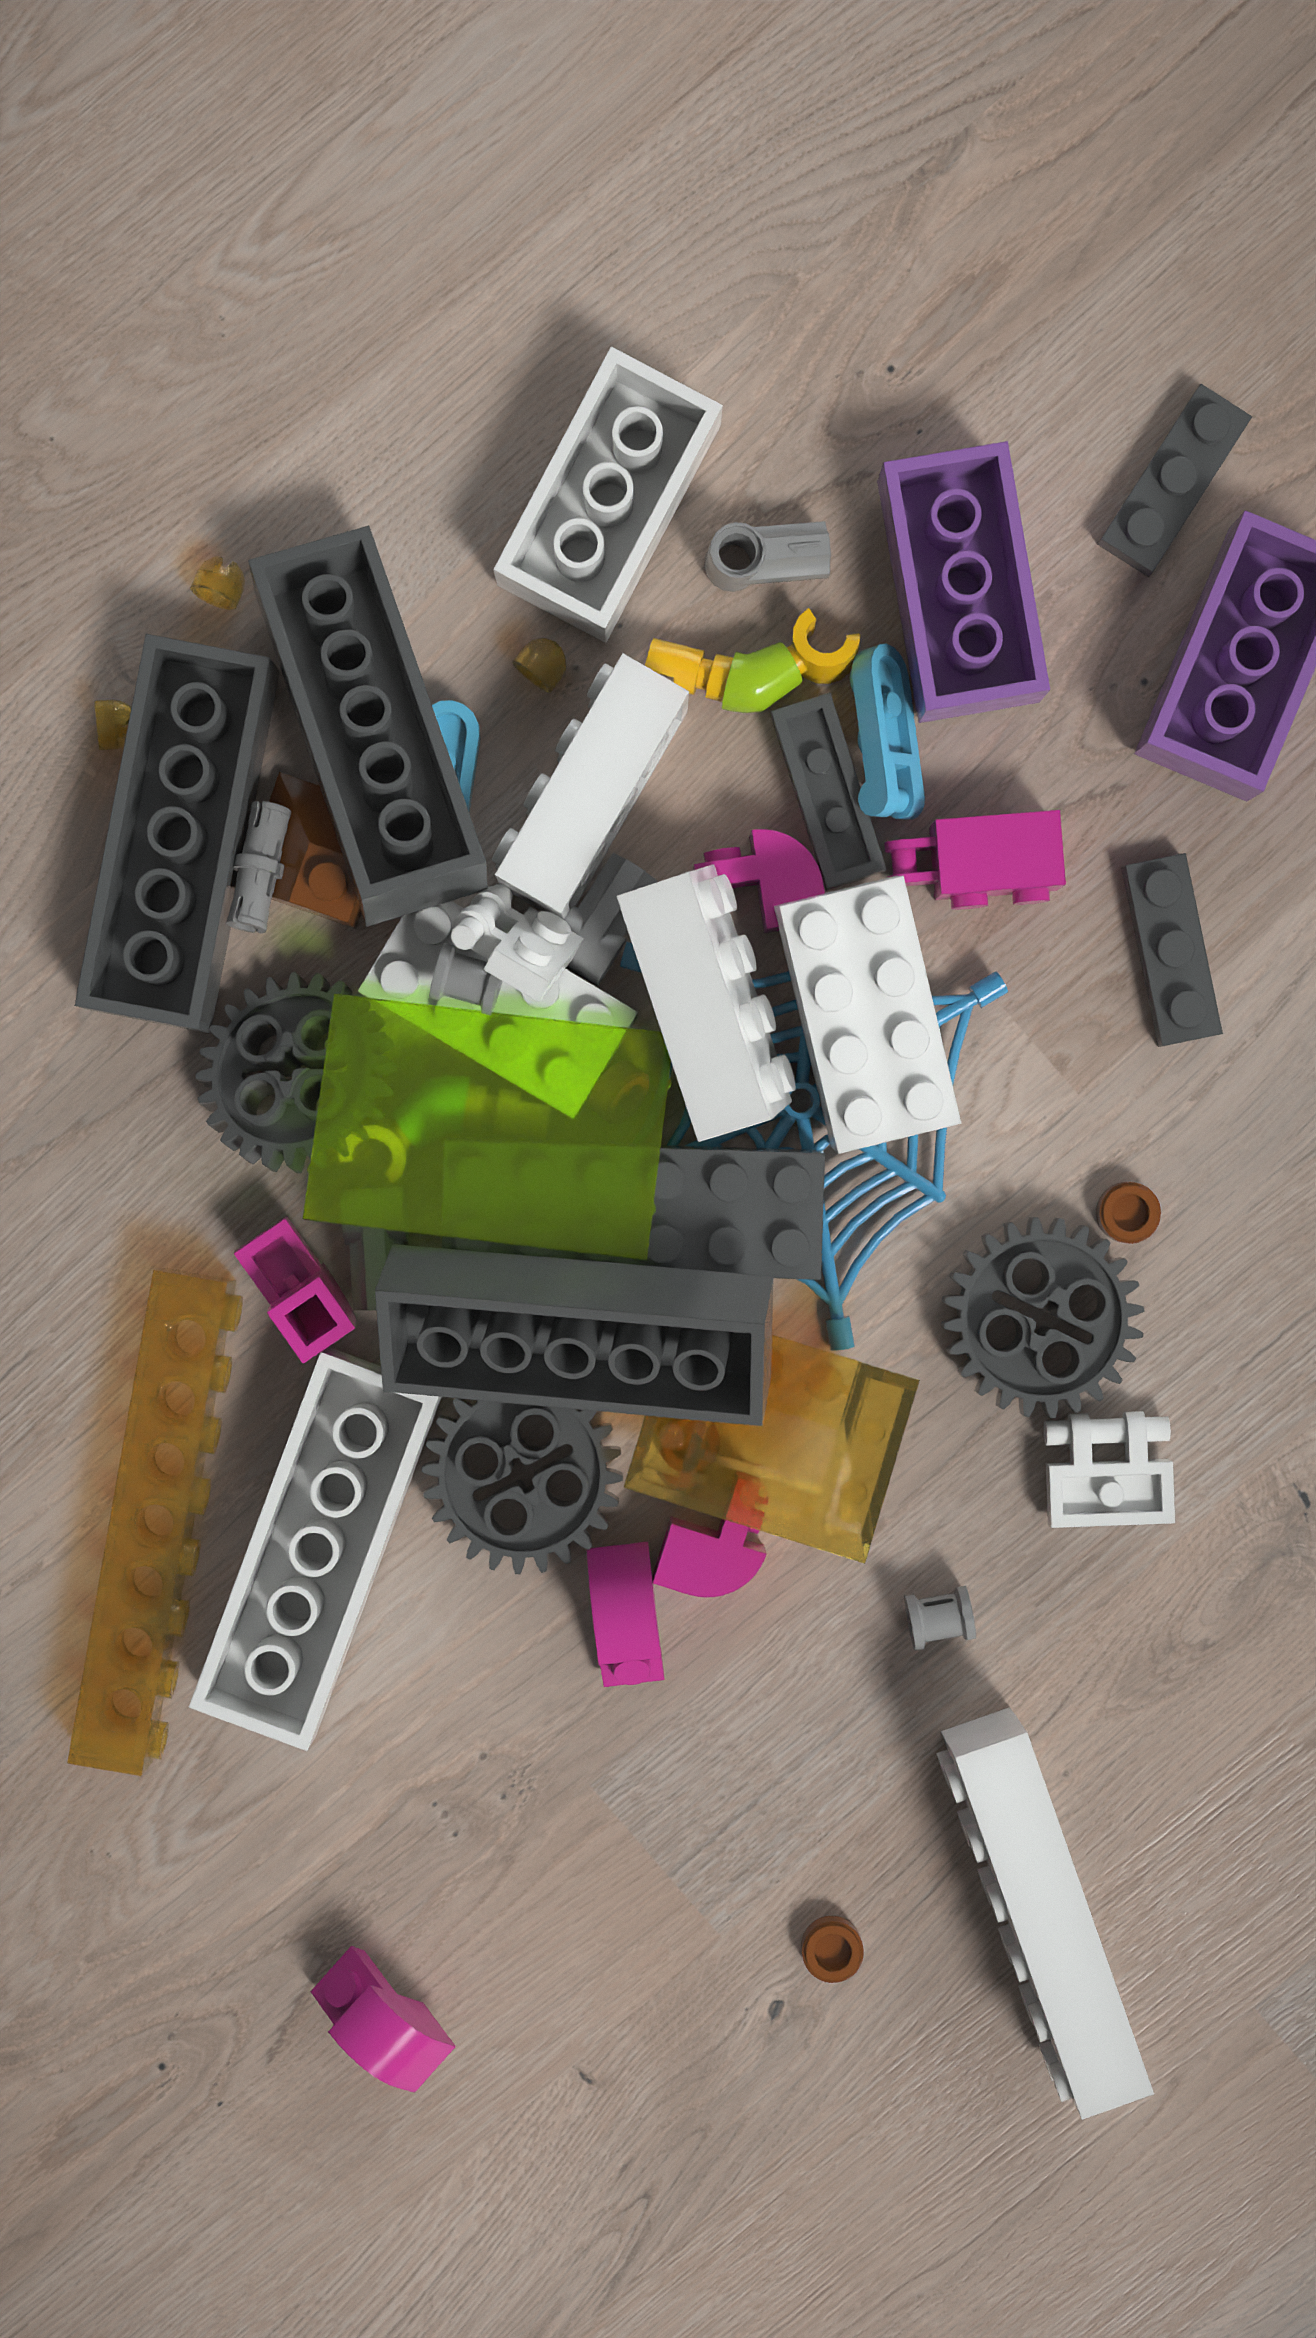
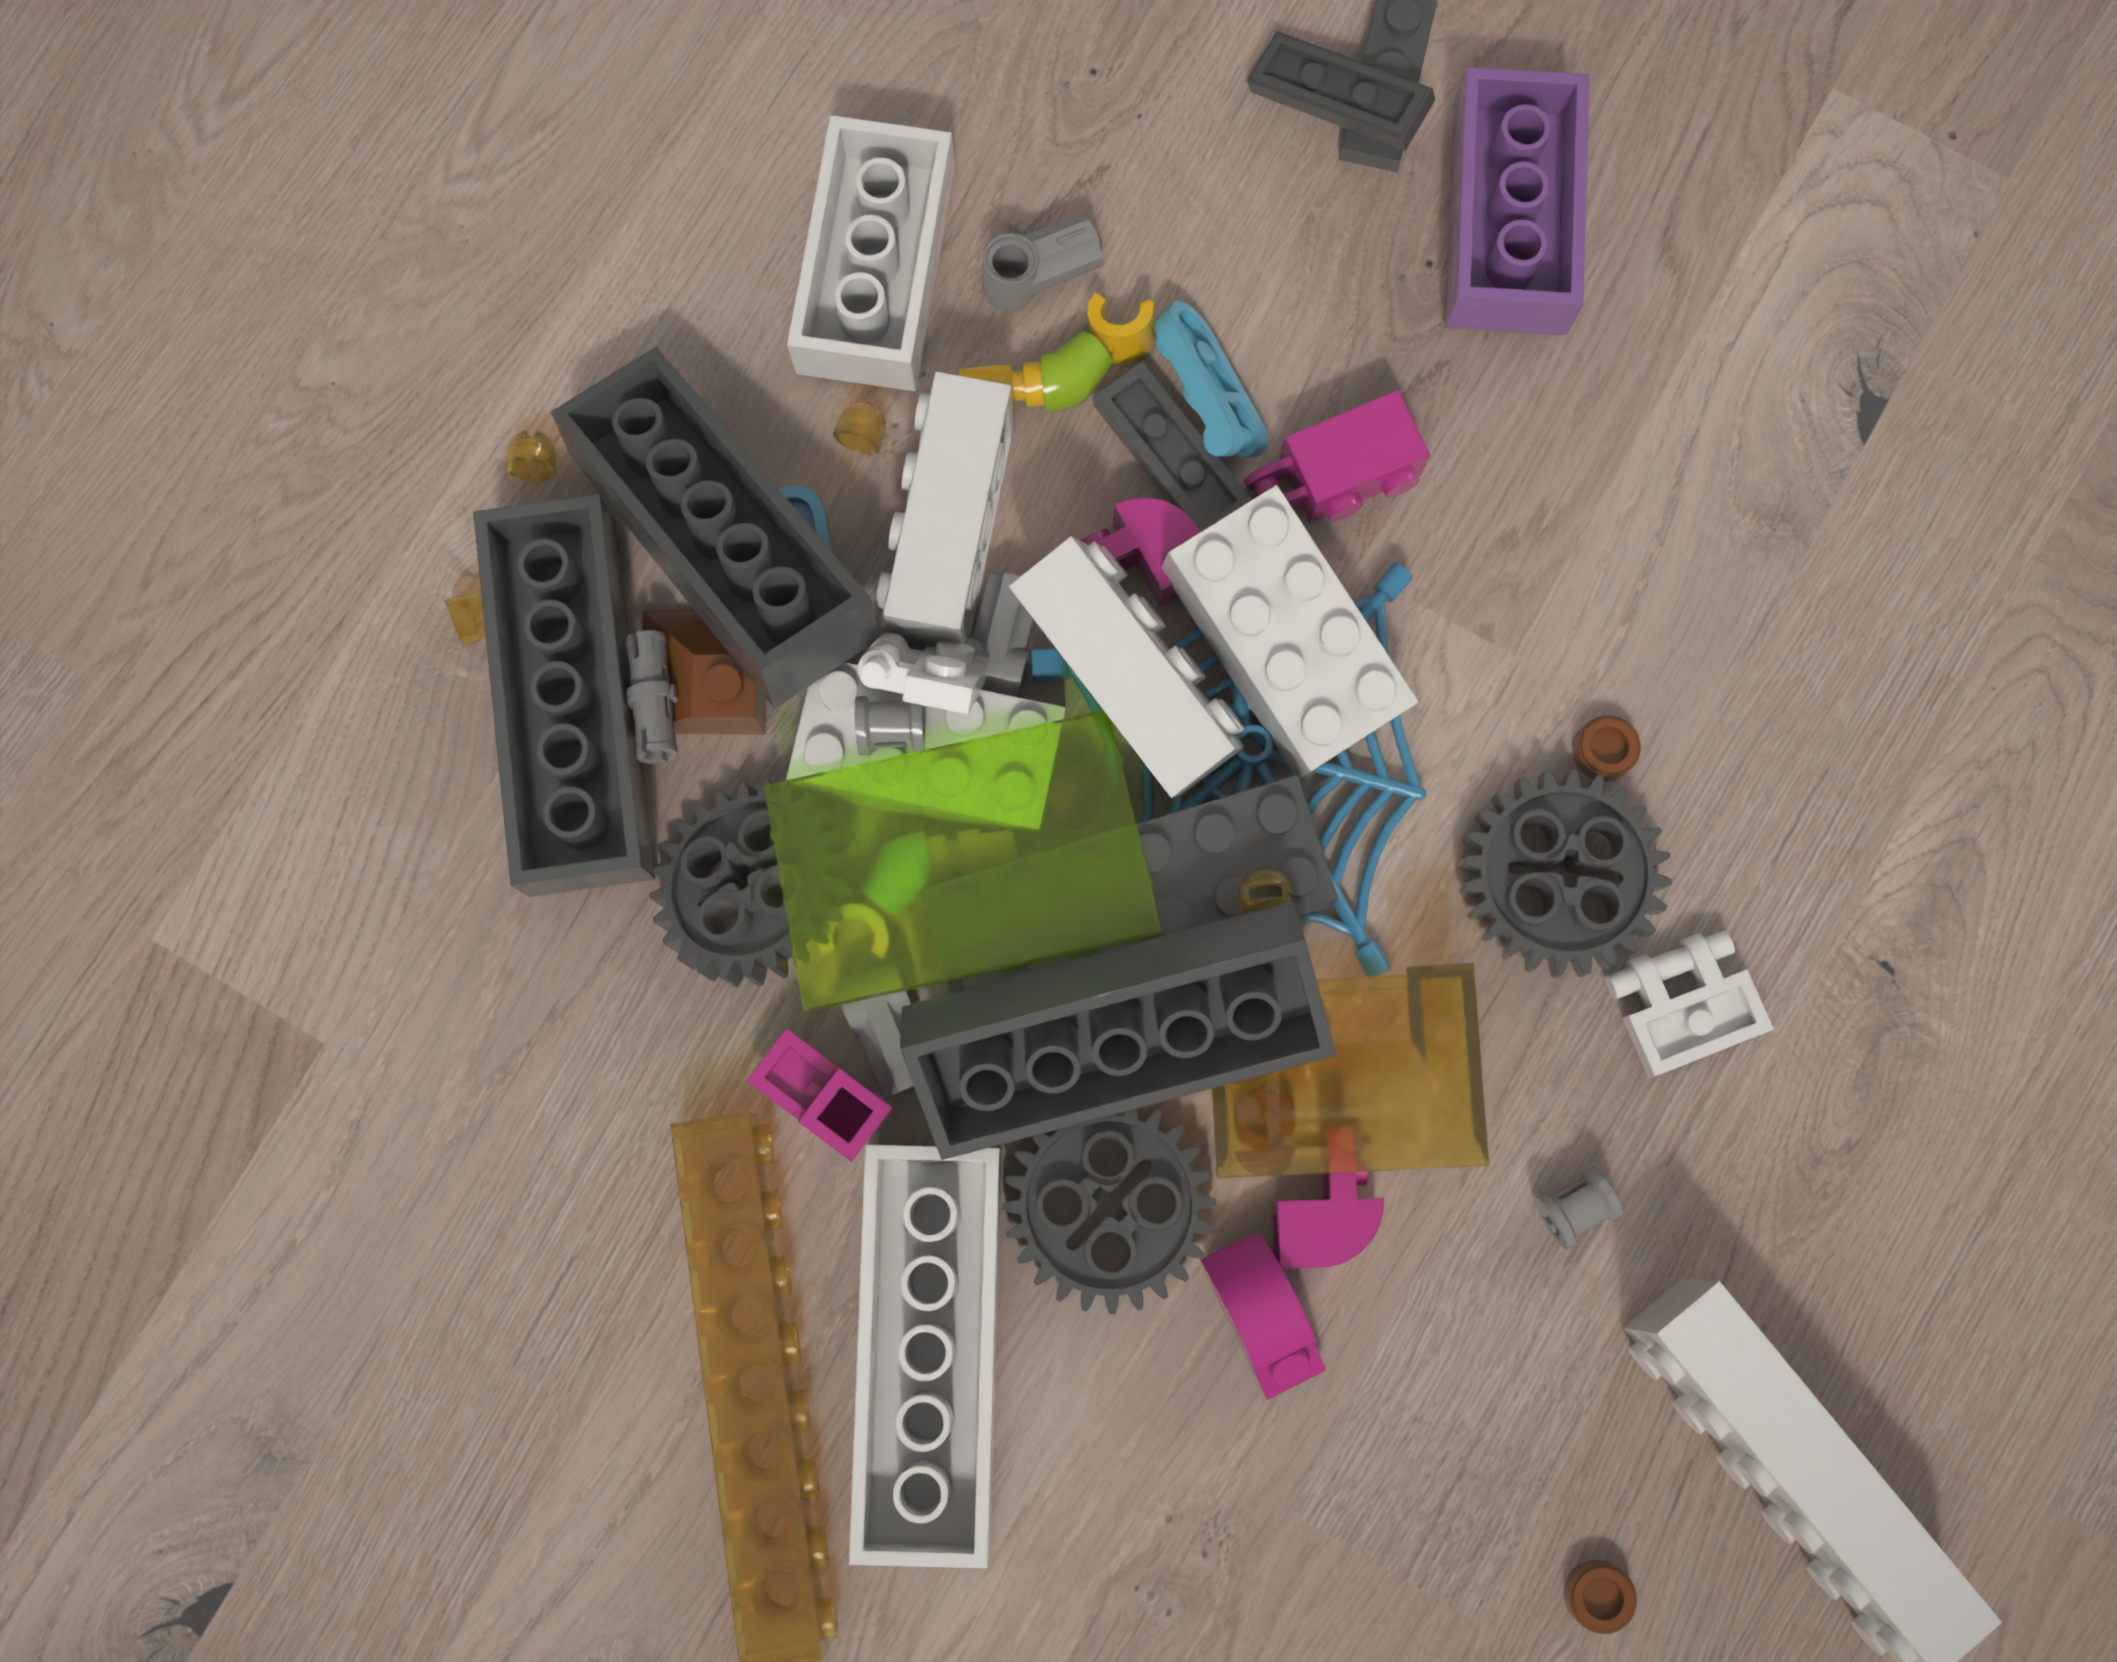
camera: 15 degrees left, 10 degrees down
(758, 1242) = (1262, 878): none -> clear yellow hinge
(963, 582) = (1230, 222): medium lavender brick -> none
(1120, 482) = (1341, 90): none -> dark grey tile
(1171, 950) = (1551, 491): dark grey plate -> none

